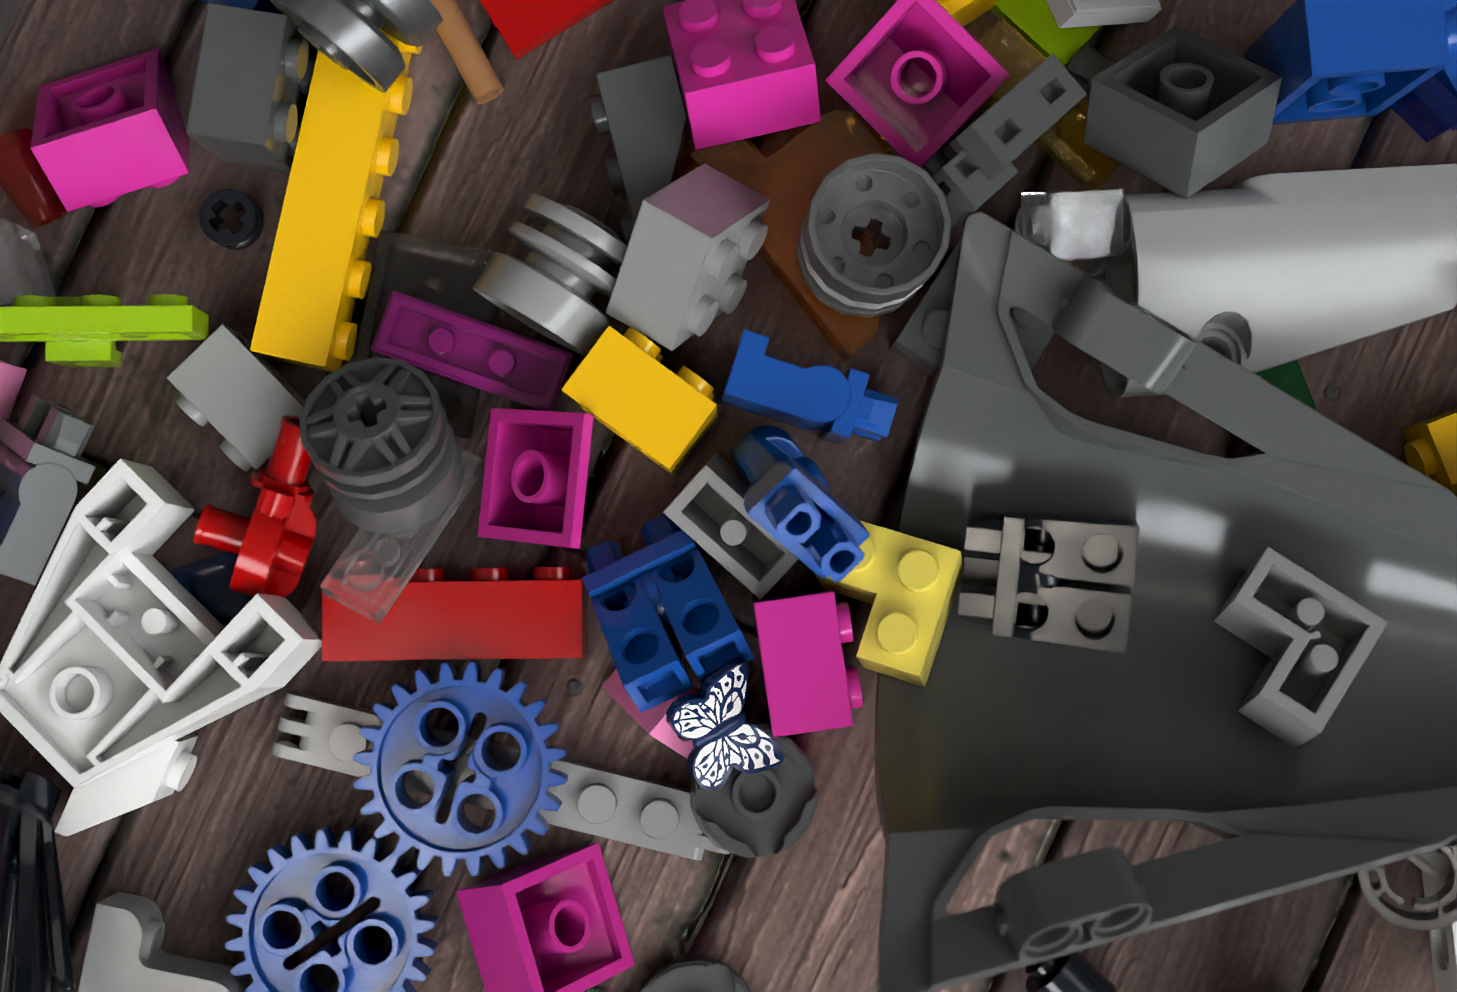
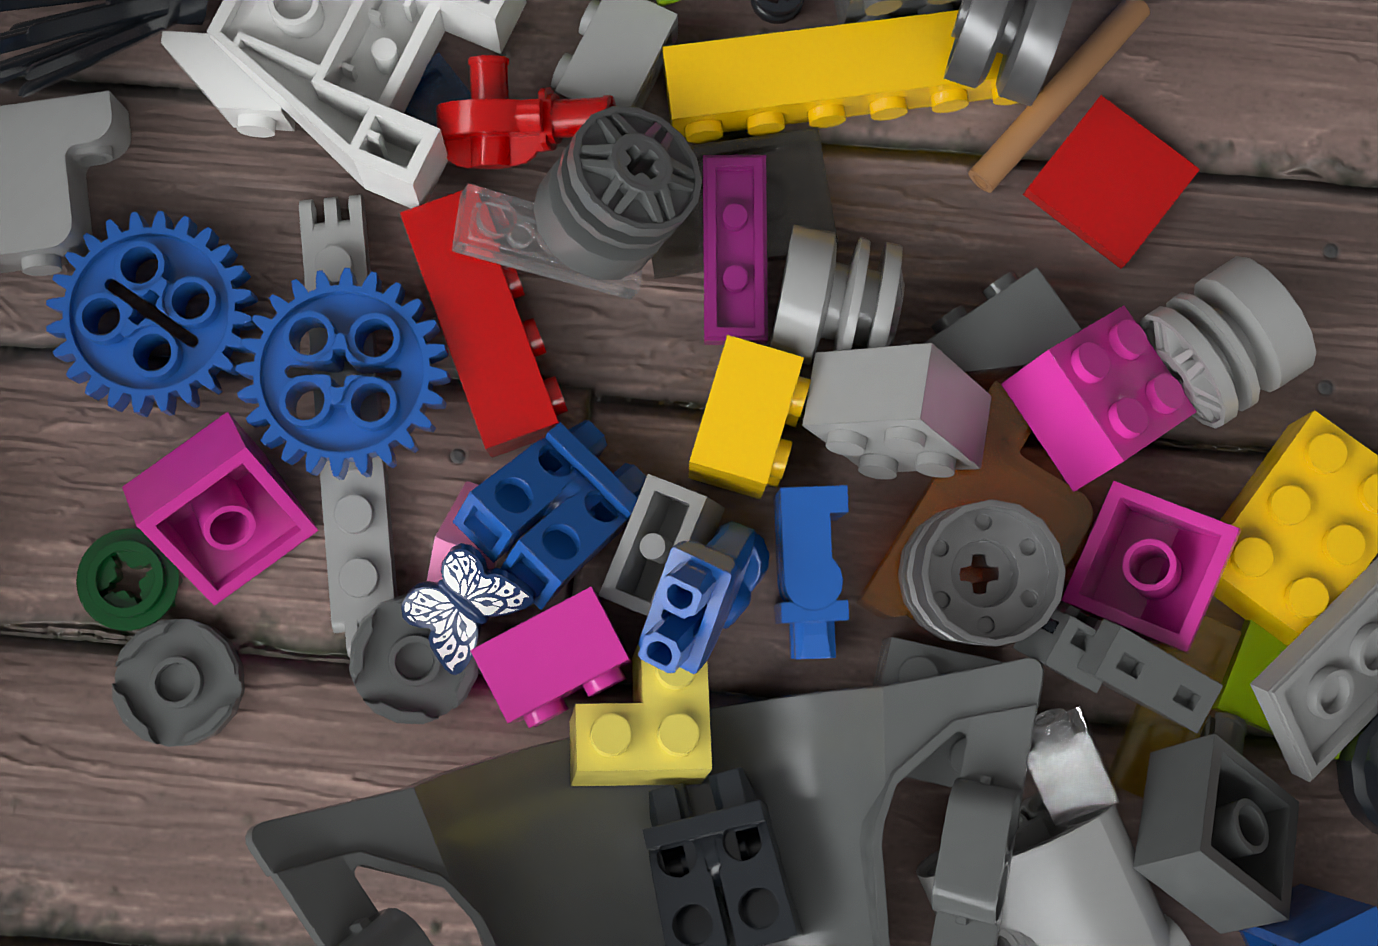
camera: 65 degrees right, 5 degrees down
(535, 476) = (639, 346): dark pink slope -> none

